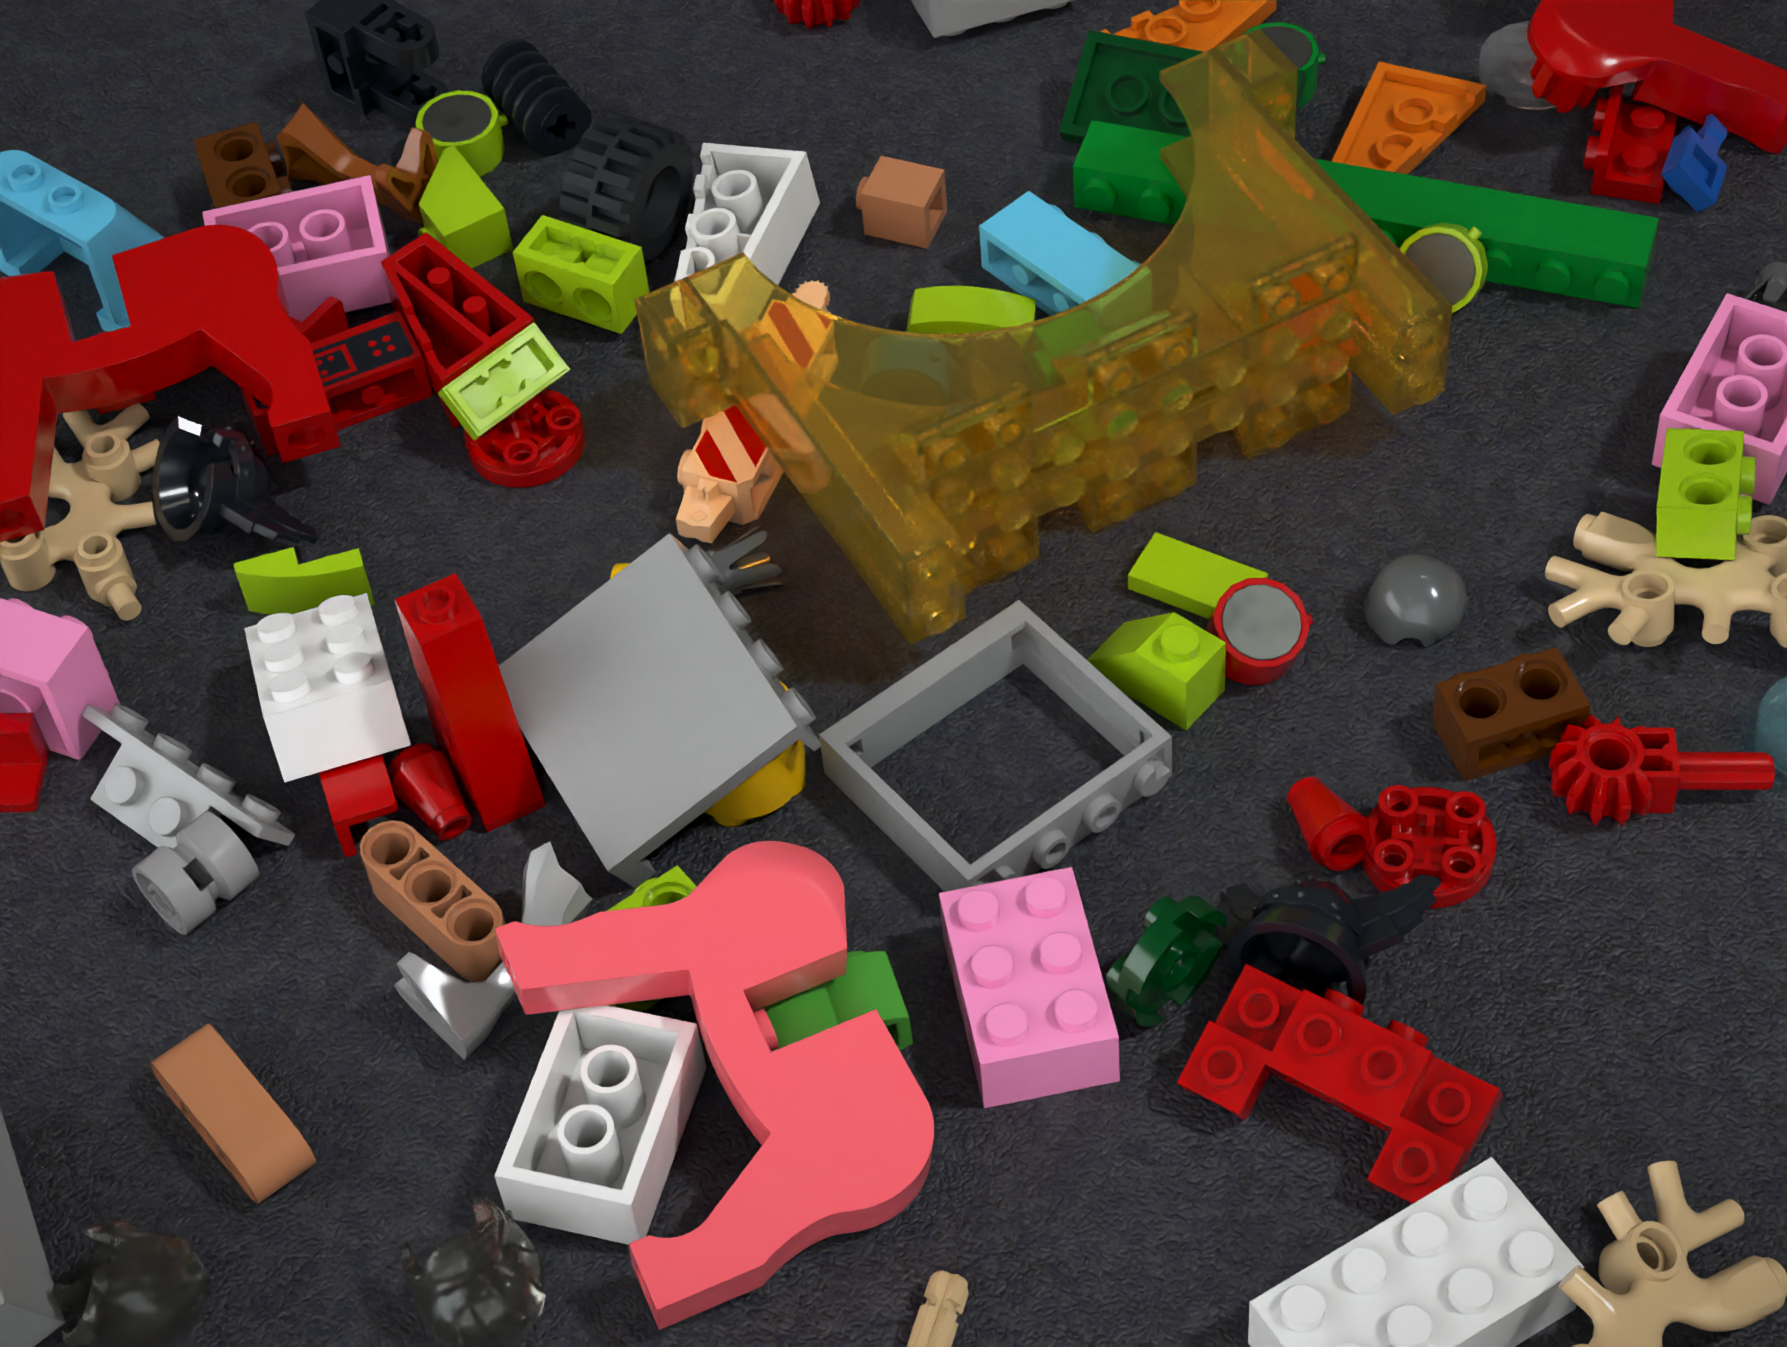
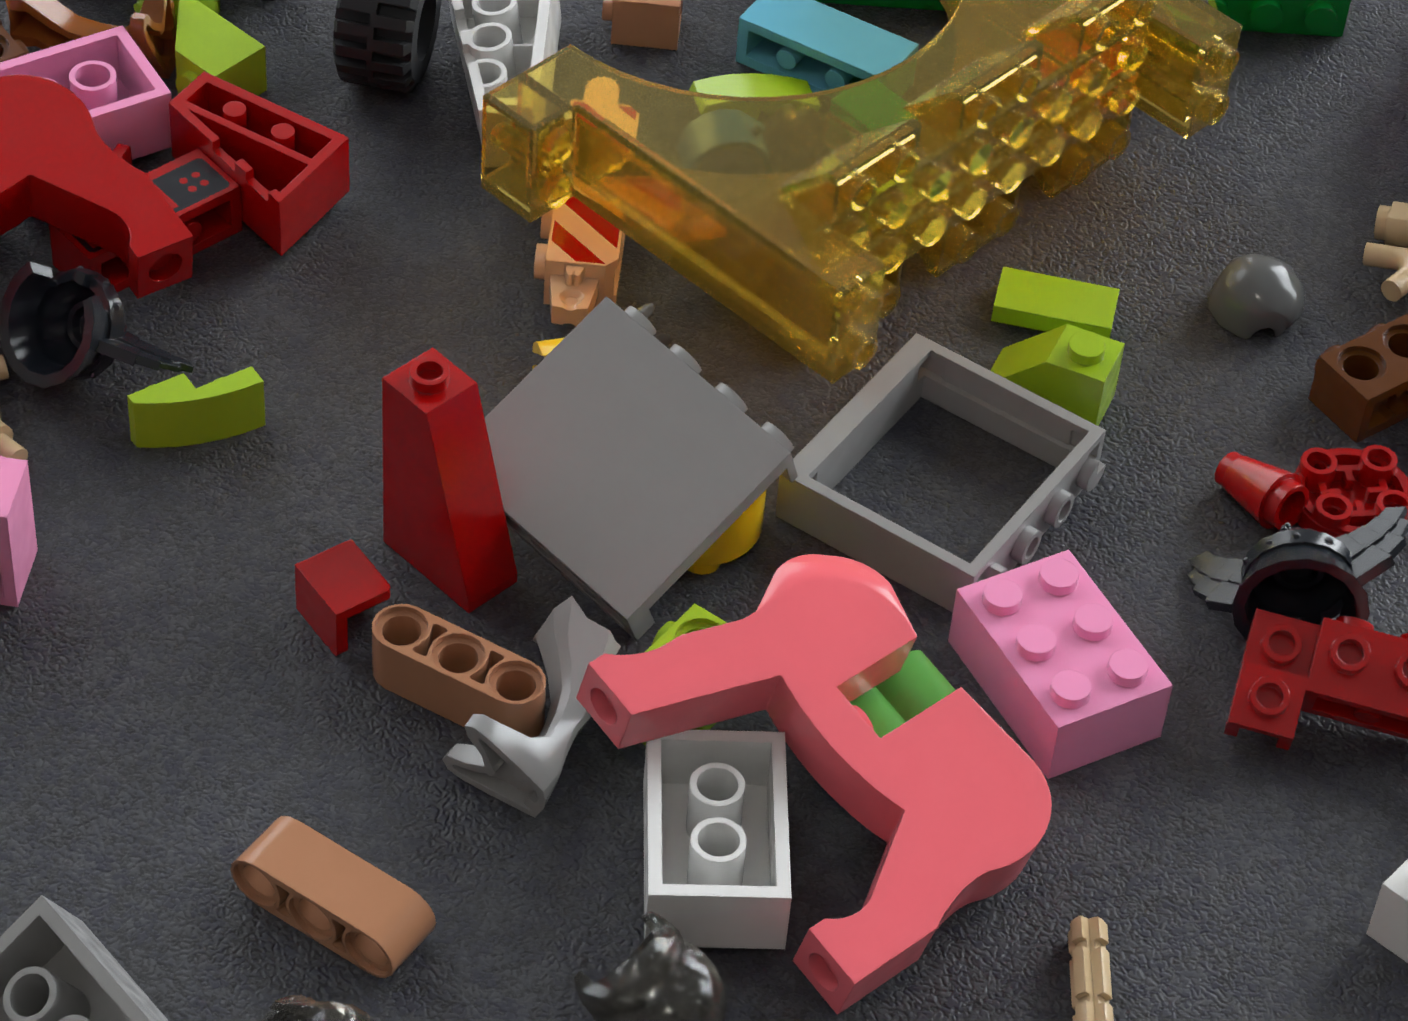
camera: 25 degrees left, 5 degrees down
(162, 792) = (135, 624): light grey bracket -> none
(214, 859) = (204, 684): light grey wheel -> none
(325, 686) = (277, 492): white brick -> none
(430, 790) = (410, 576): red cone -> none
(503, 381) = (335, 200): lime plate -> none
(531, 443) = (357, 253): red tile -> none
(581, 273) = (367, 97): lime brick -> none
(1167, 959) = (1187, 614): dark green plate -> none
(1261, 629) = (1149, 328): piece -> none

